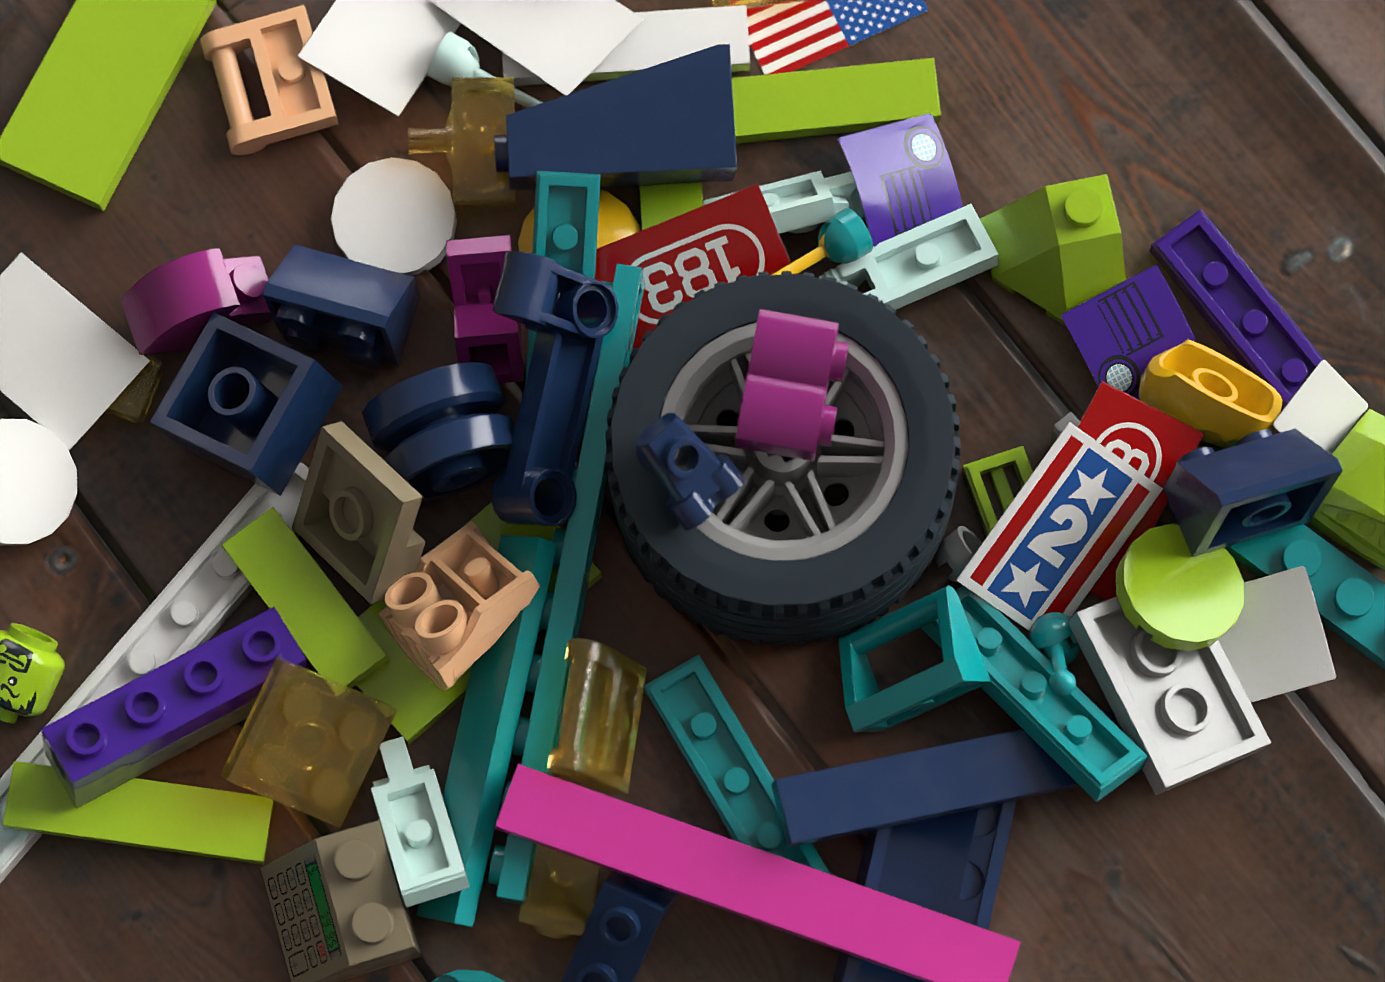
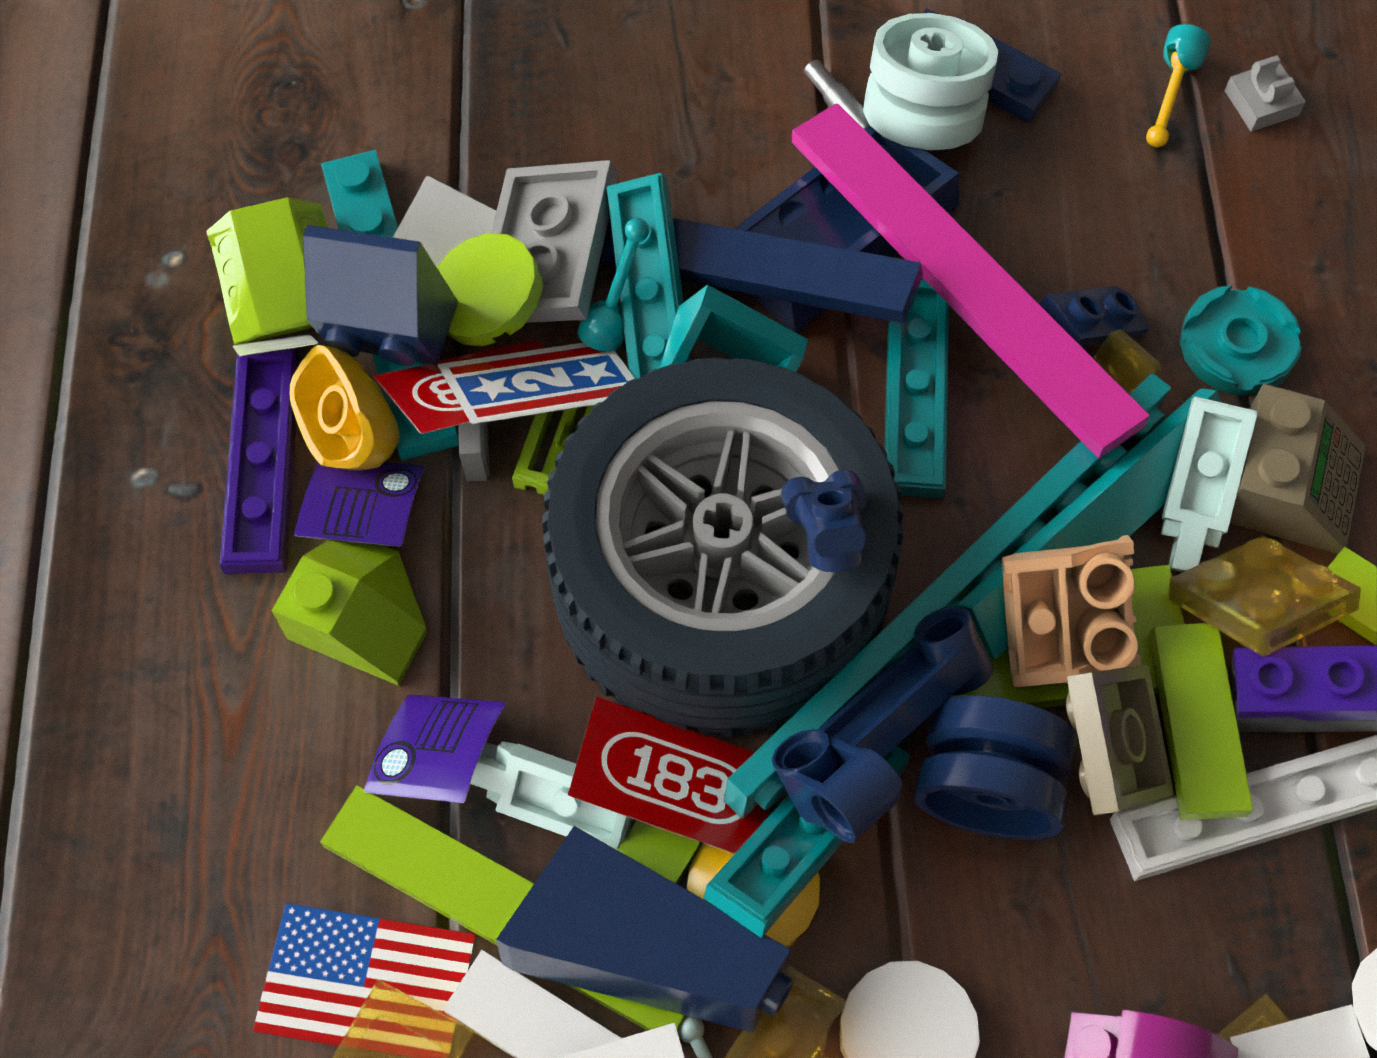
camera: 150 degrees left, 10 degrees down
(247, 403) = (1164, 919): dark blue brick -> none
(342, 305) = (1016, 957): dark blue slope -> none
(478, 330) = (885, 866): magenta brick -> none
(599, 717) = (1005, 468): clear yellow plate -> none
(789, 384) = (690, 529): magenta brick -> none
(840, 239) = (530, 715): teal hinge -> none
(923, 259) = (483, 670): light aqua hinge -> none

